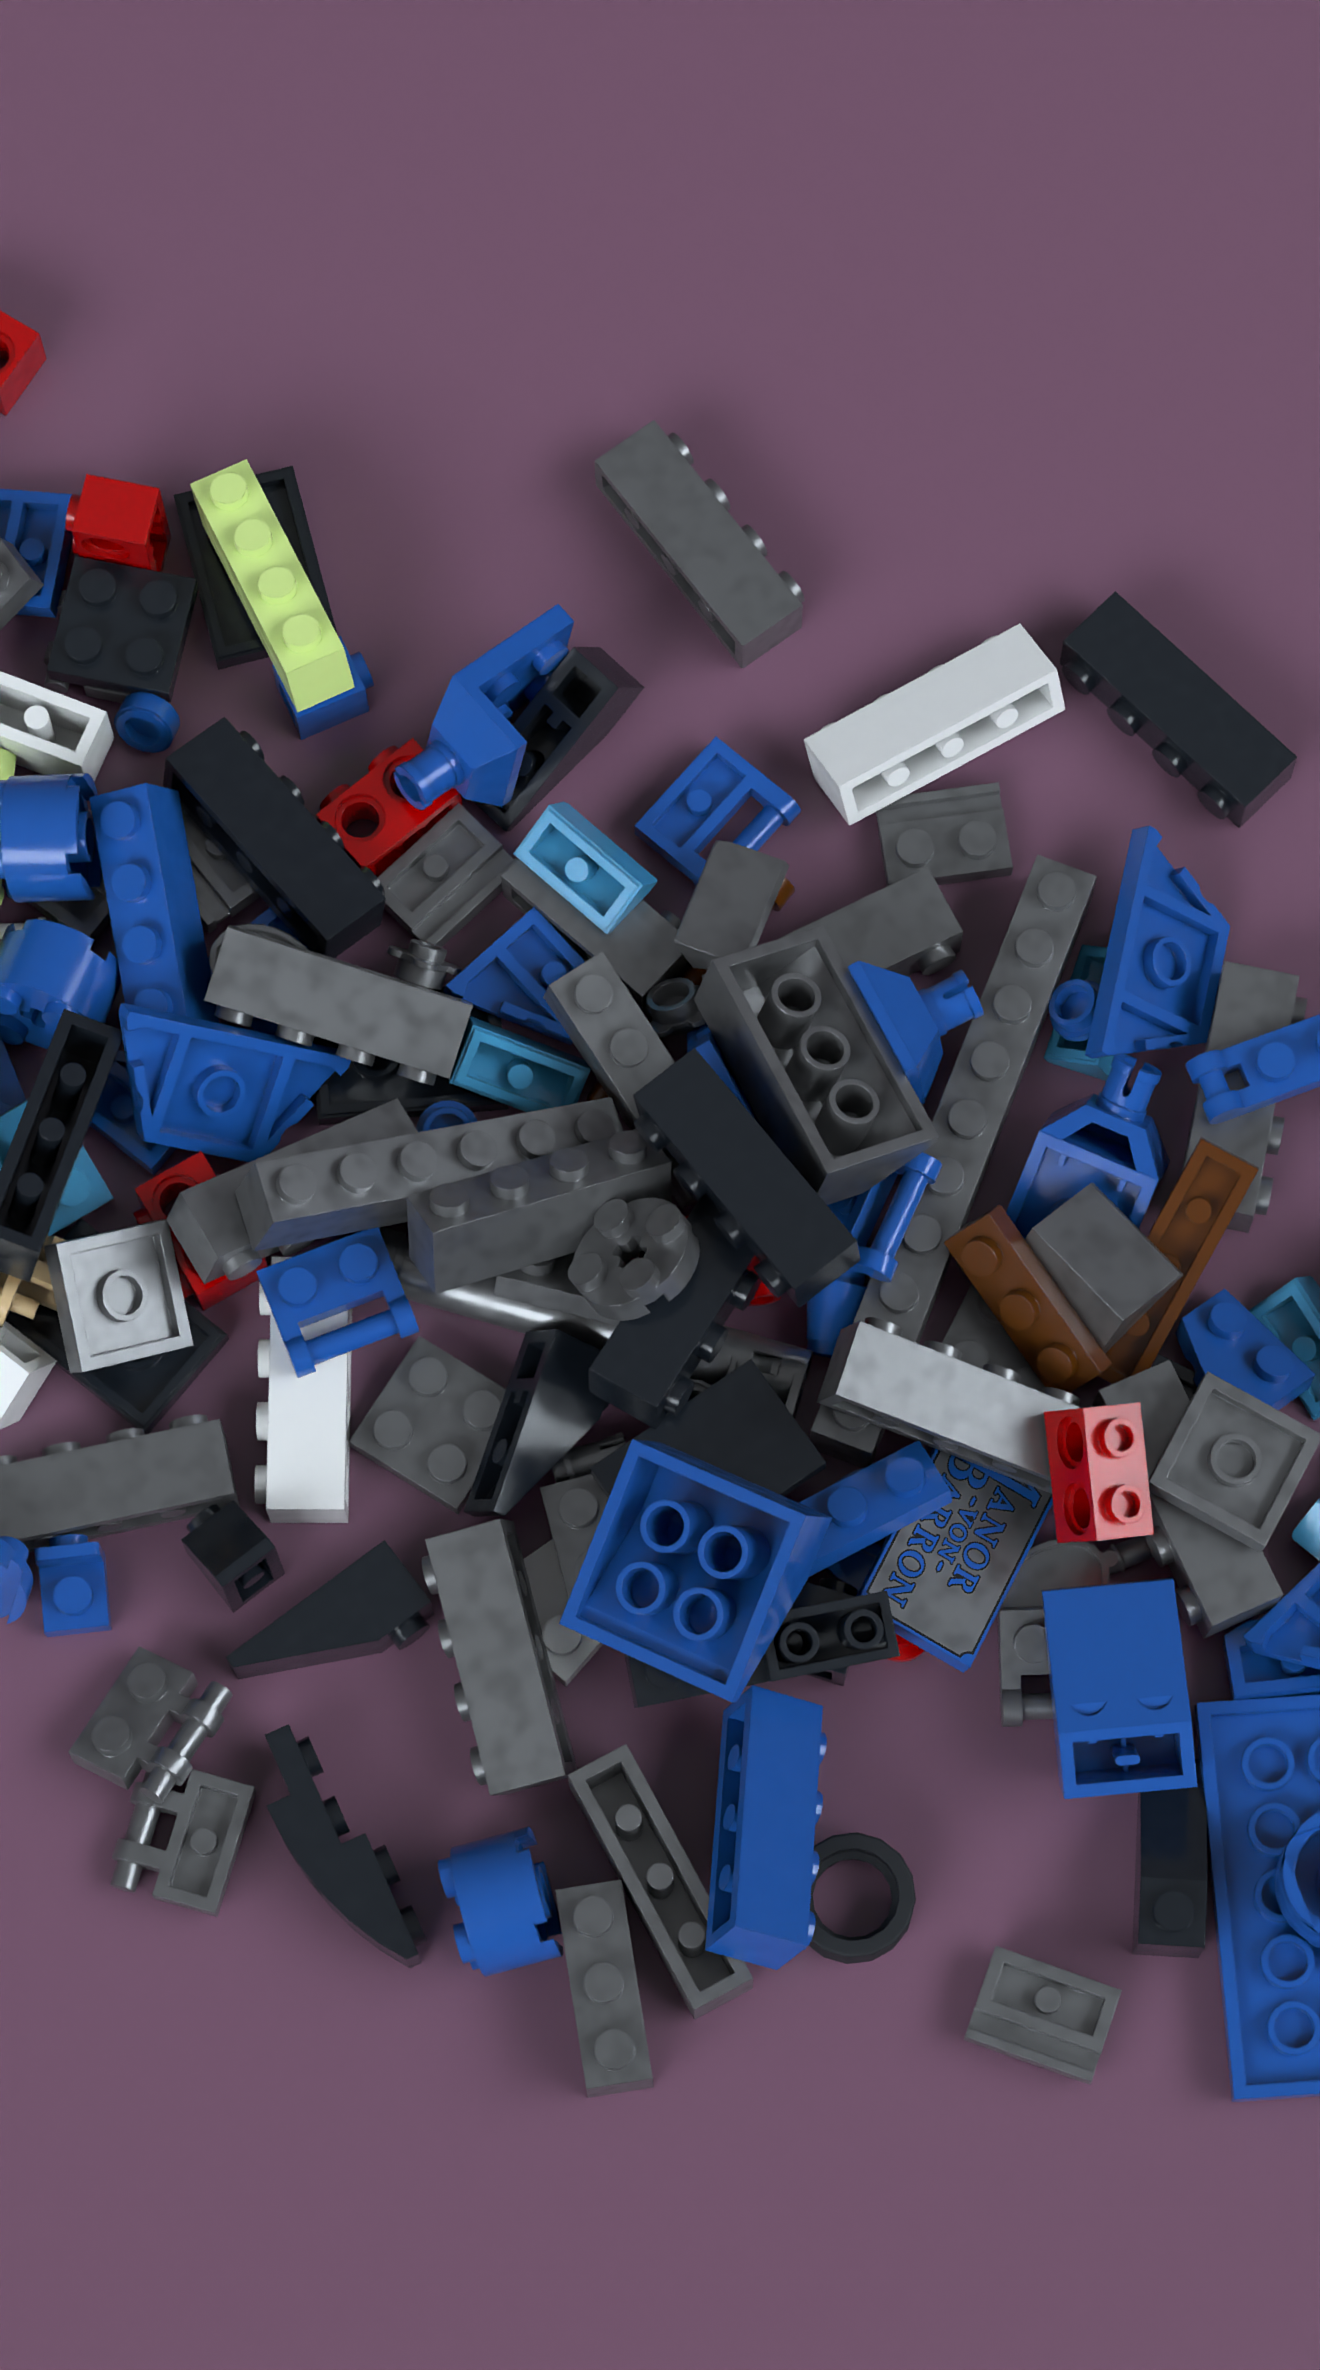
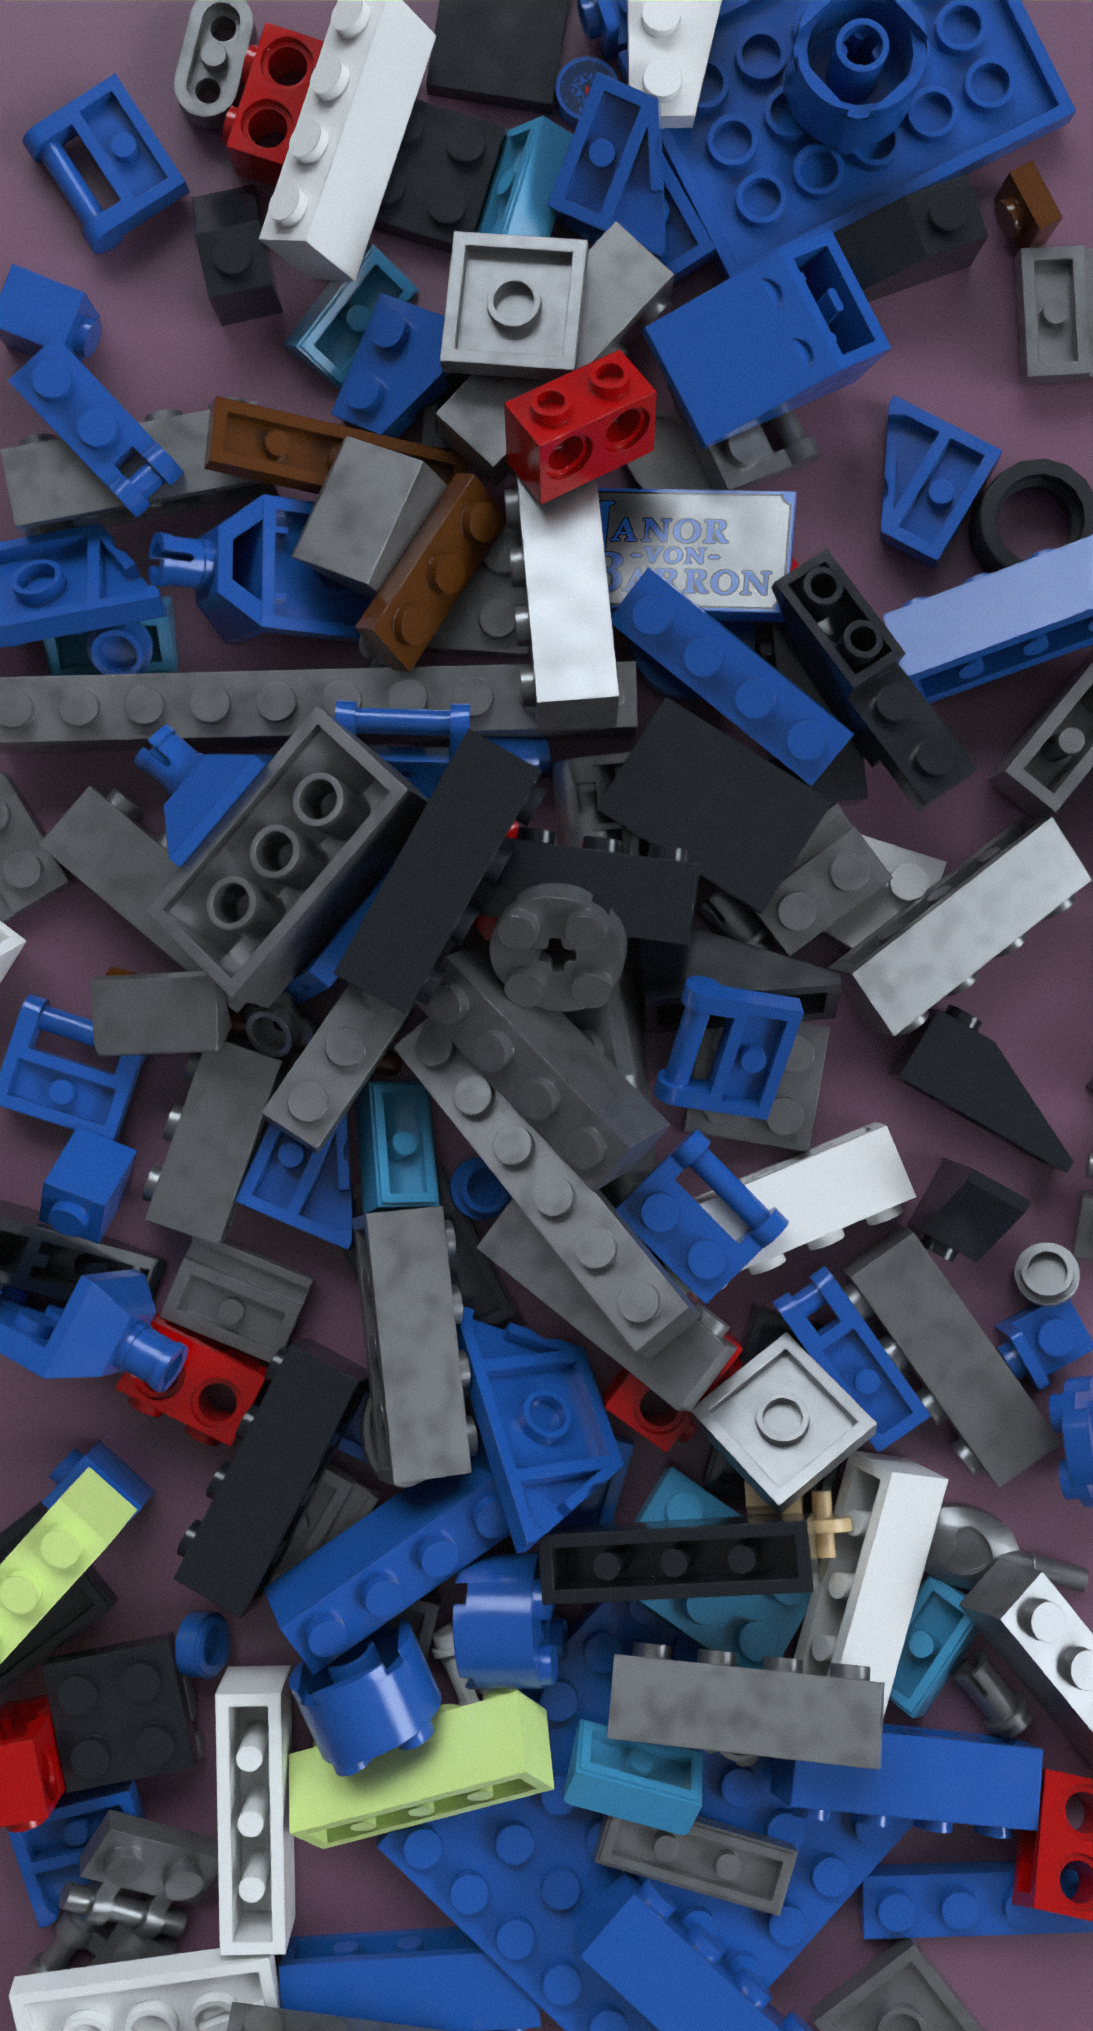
camera: 115 degrees left, 15 degrees up
(134, 1615) = (1047, 1274): none -> flat silver plate
(141, 1393) = (853, 1358): none -> blue plate
(423, 964) = (334, 1280): flat silver plate -> none
(469, 1405) = (748, 1055): none -> blue plate
(584, 866) = (176, 1169): dark azure slope -> none
(604, 786) = (87, 1185): none -> blue brick
(693, 1568) = (836, 764): blue slope -> none
(934, 1815) = (929, 480): none -> blue wing
(1159, 2012) = (1026, 207): none -> reddish brown plate

